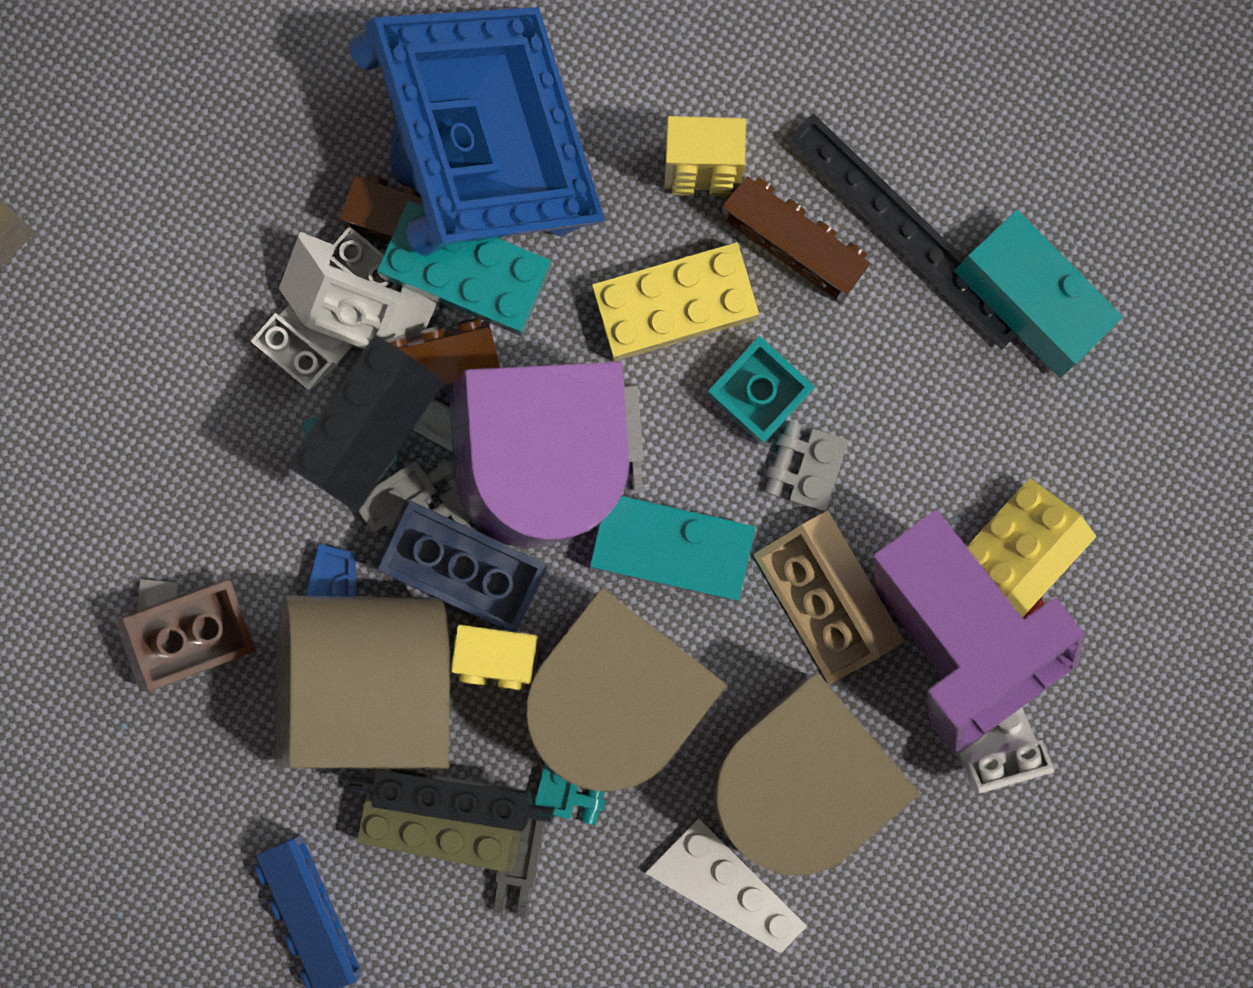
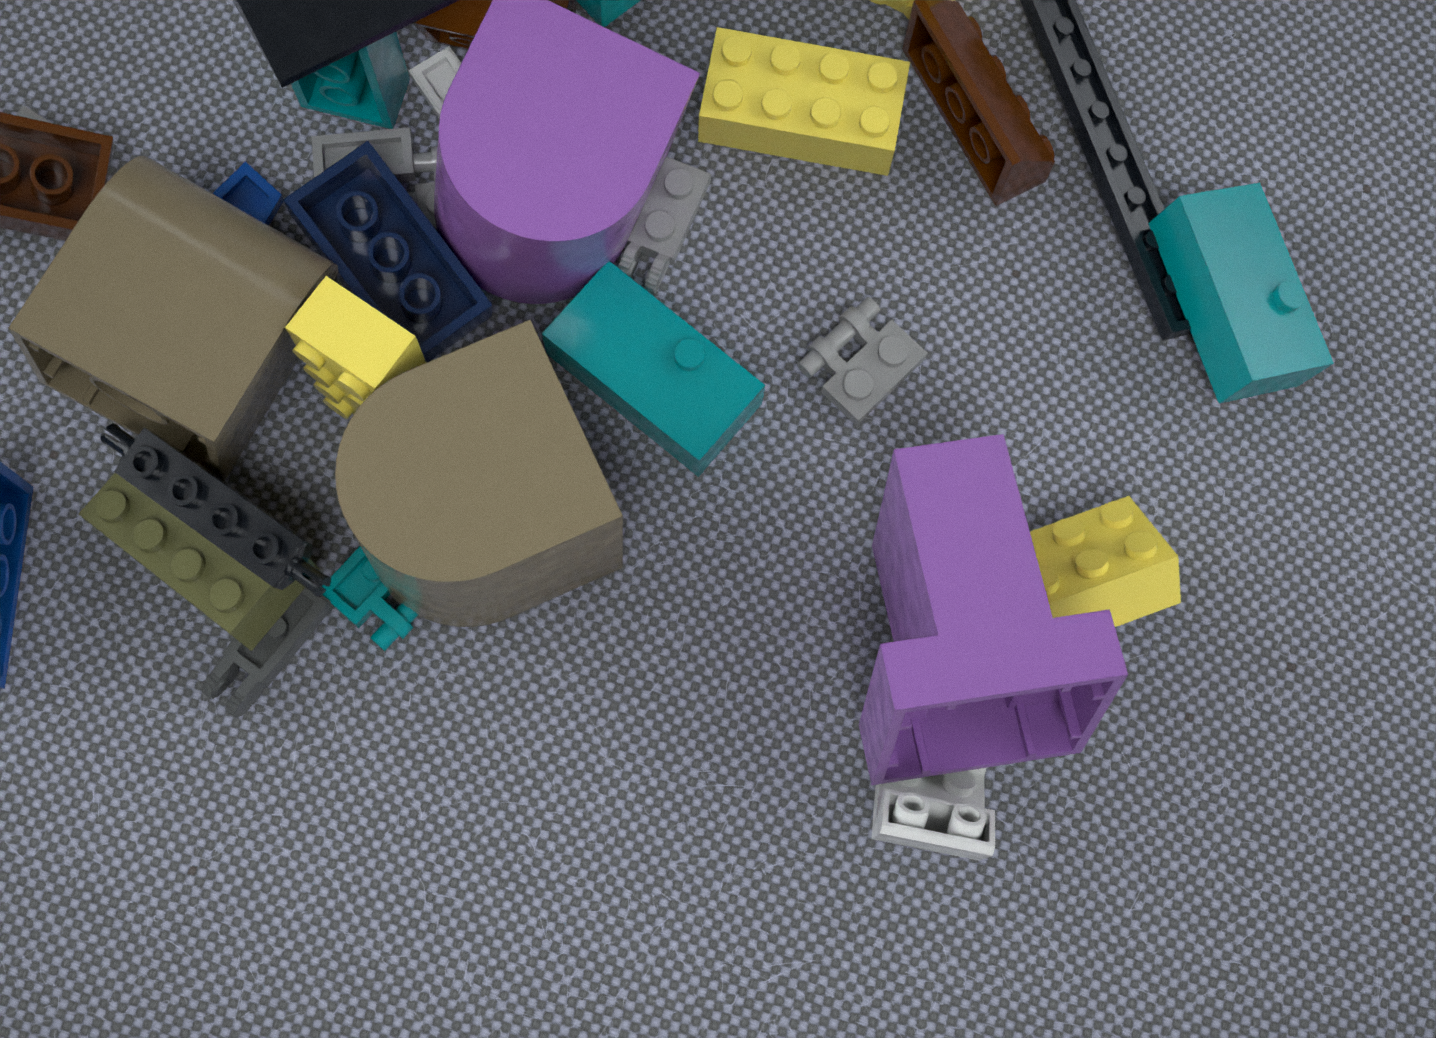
camera: 25 degrees right, 10 degrees down
(717, 880) = (499, 802): white wing -> none
(760, 390) = (852, 241): teal brick -> none
(806, 783) = (661, 706): dark tan brick -> none
(828, 597) = (811, 520): tan slope -> none

